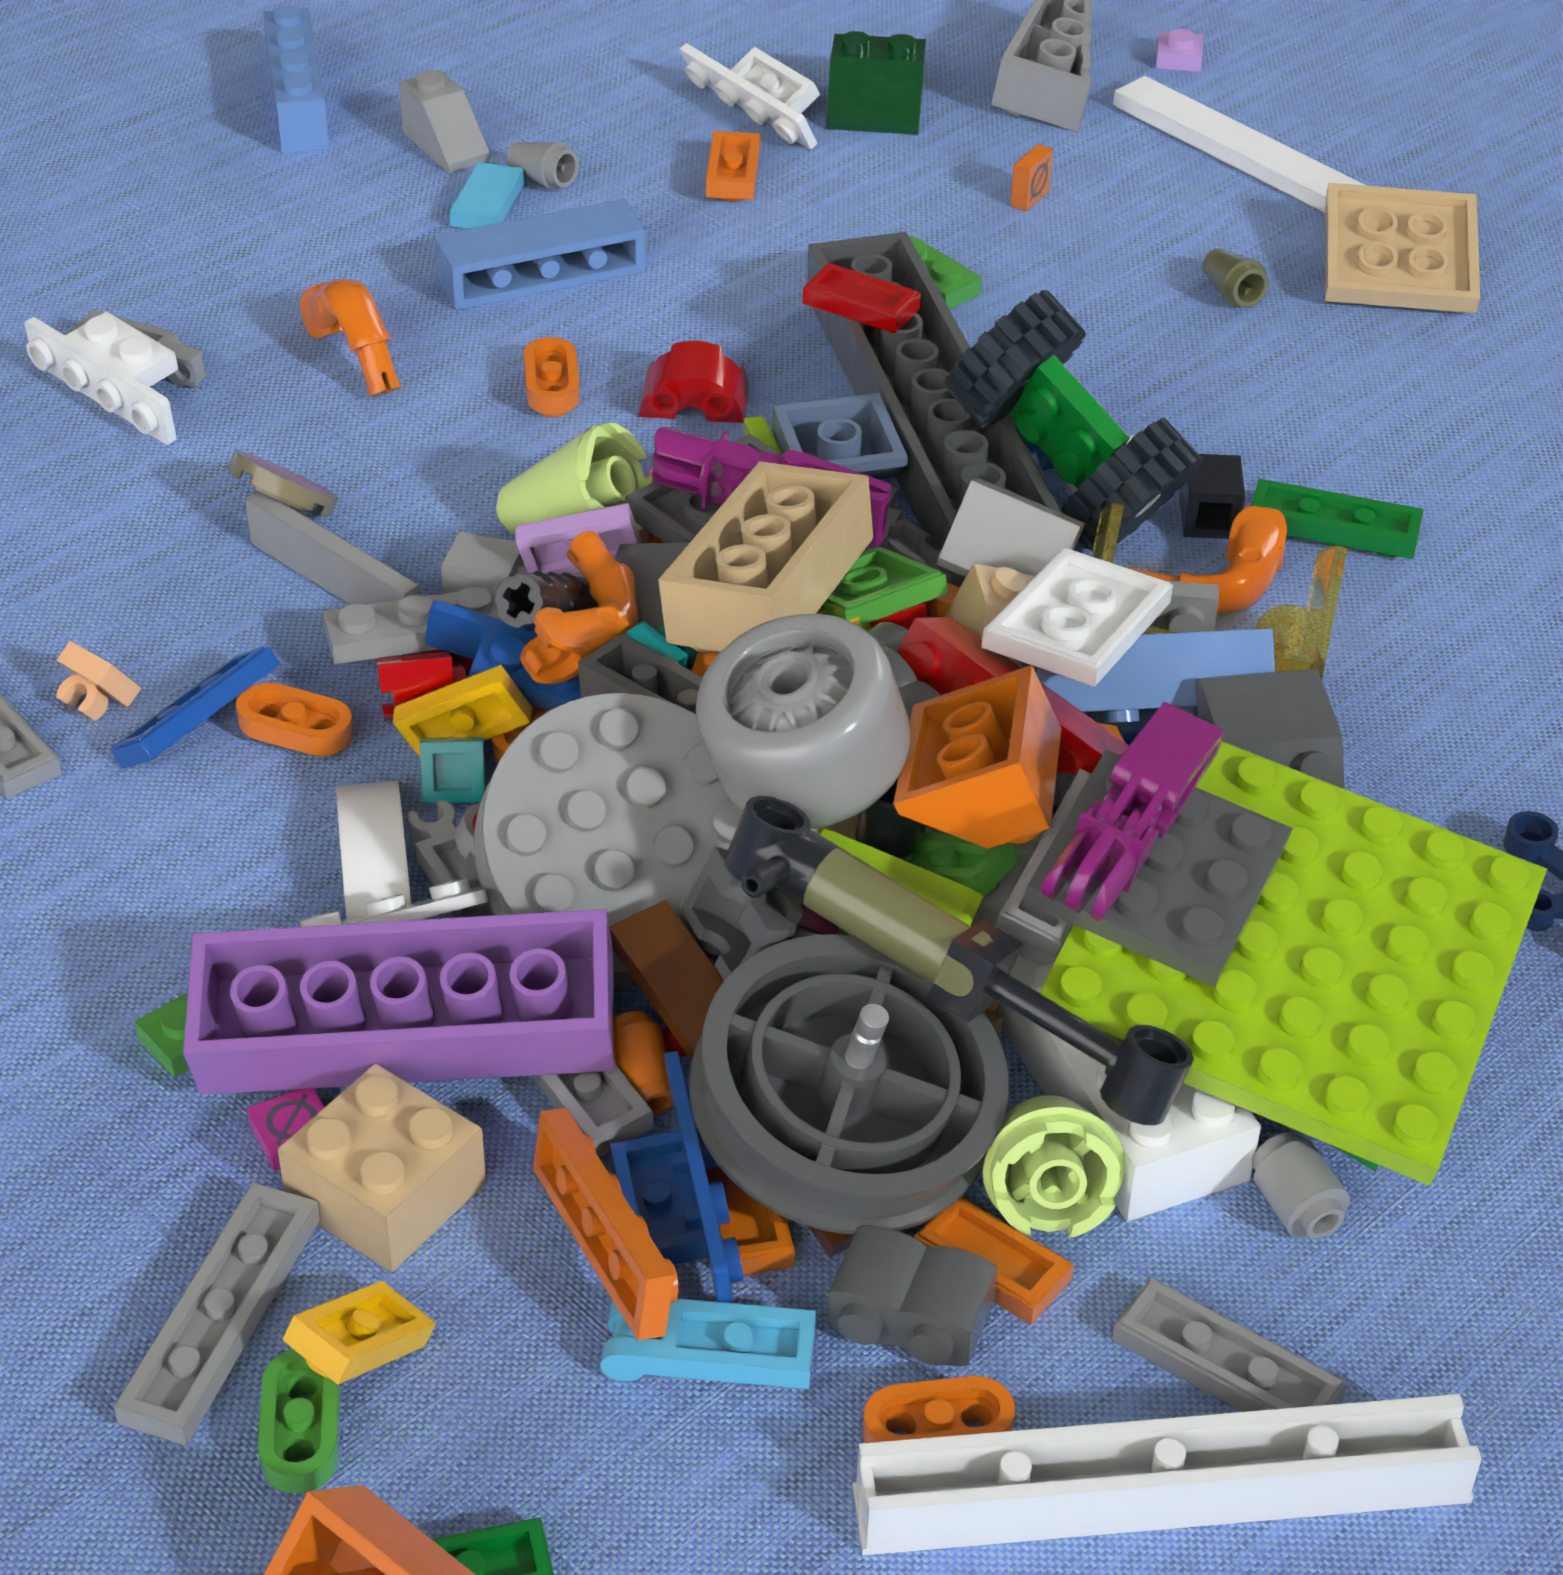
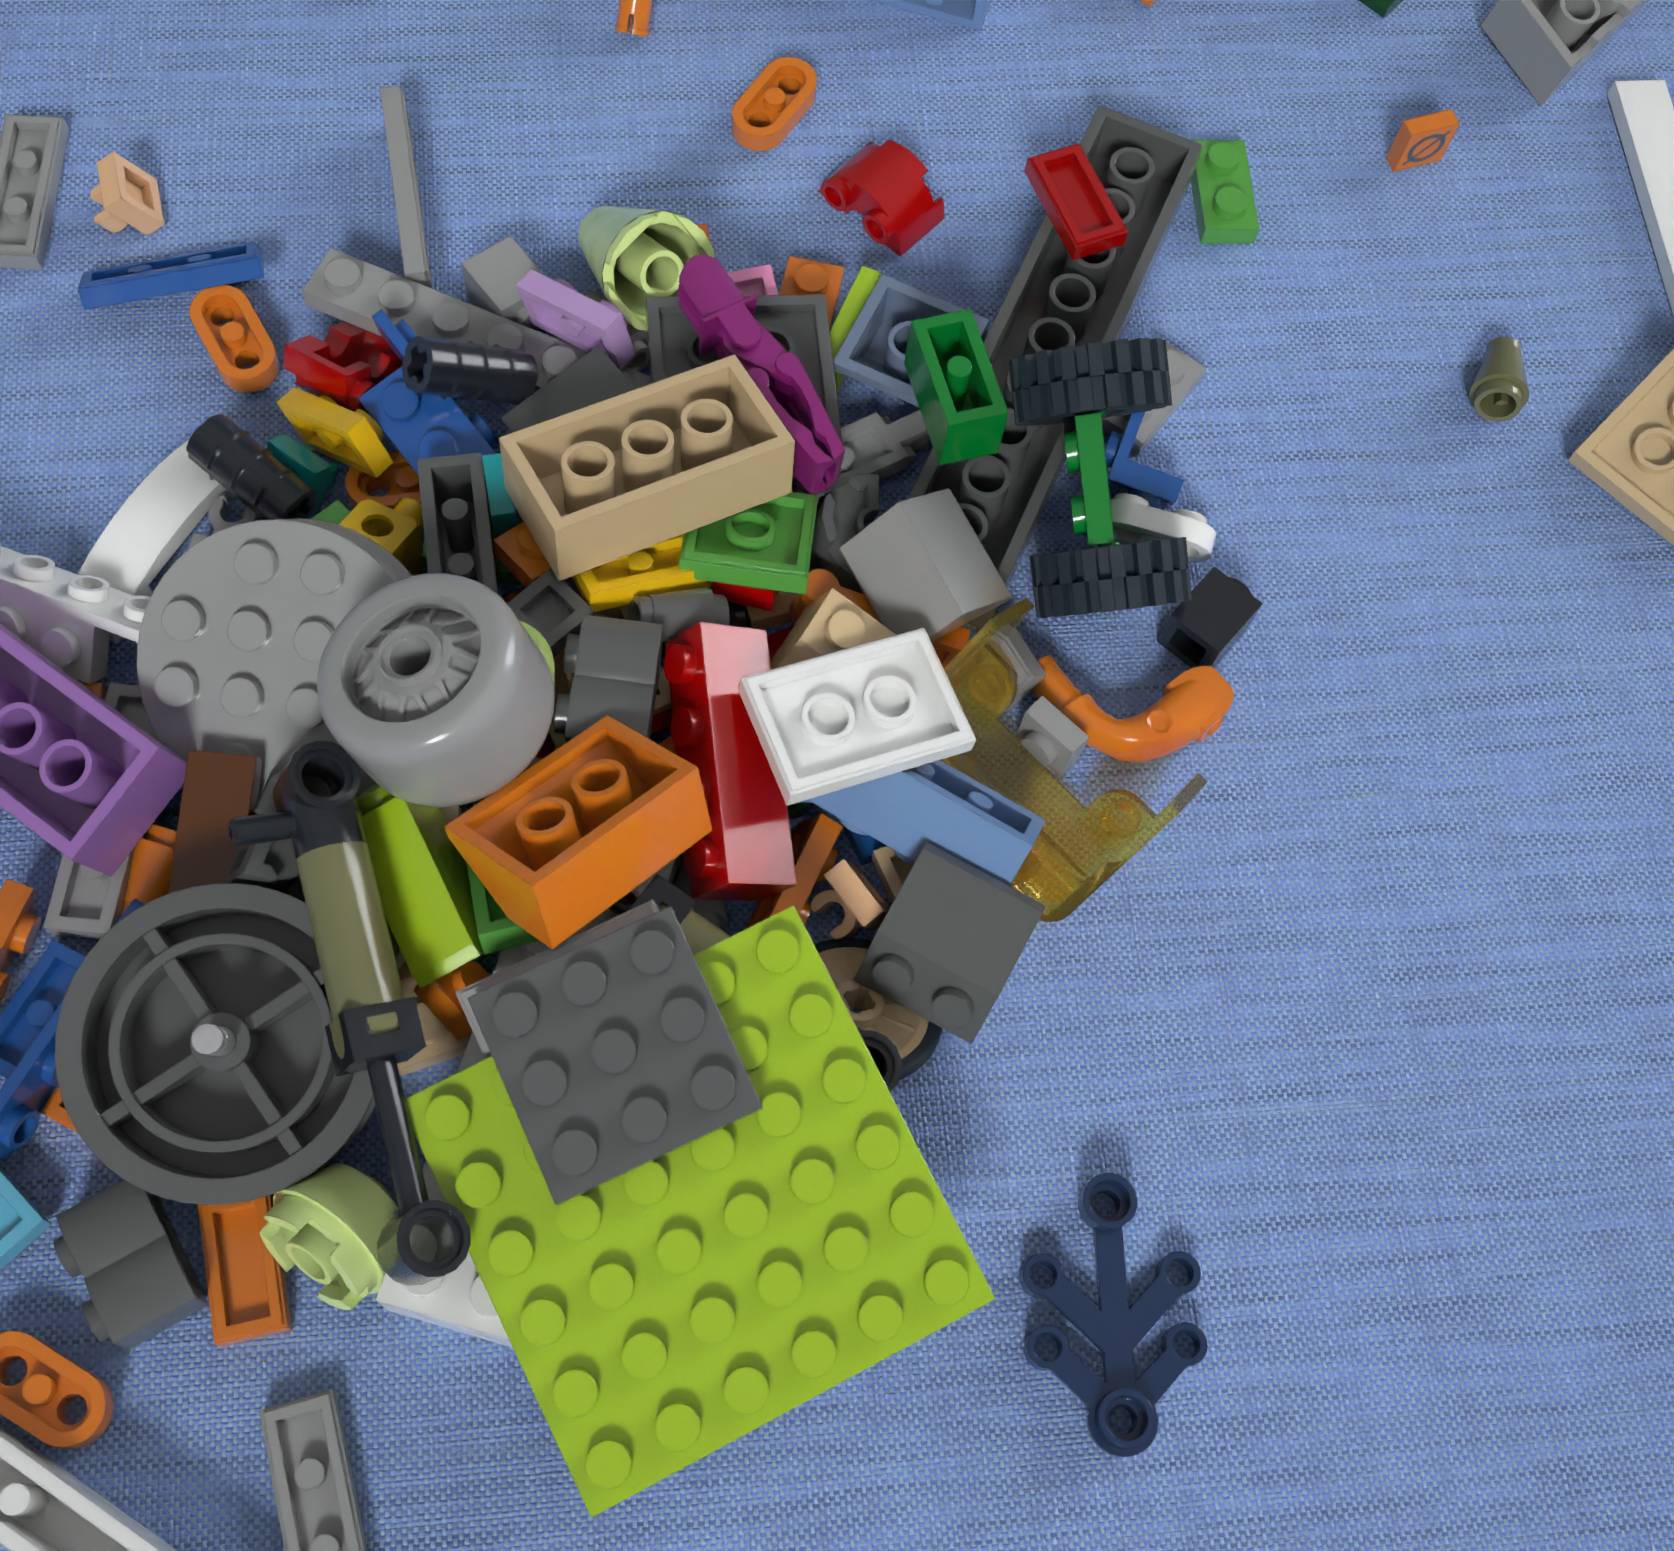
camera: 30 degrees right, 25 degrees up
(283, 483) = (434, 86): dark tan tile -> none
(429, 769) = (250, 471): none -> black axle
(575, 634) = (431, 428): orange piece -> none
(918, 419) = (955, 387): none -> green brick
(1141, 805) = (640, 992): magenta arm -> none
(1300, 1186) = (516, 1417): light grey brick -> none
(1343, 518) = (1303, 724): green plate -> none

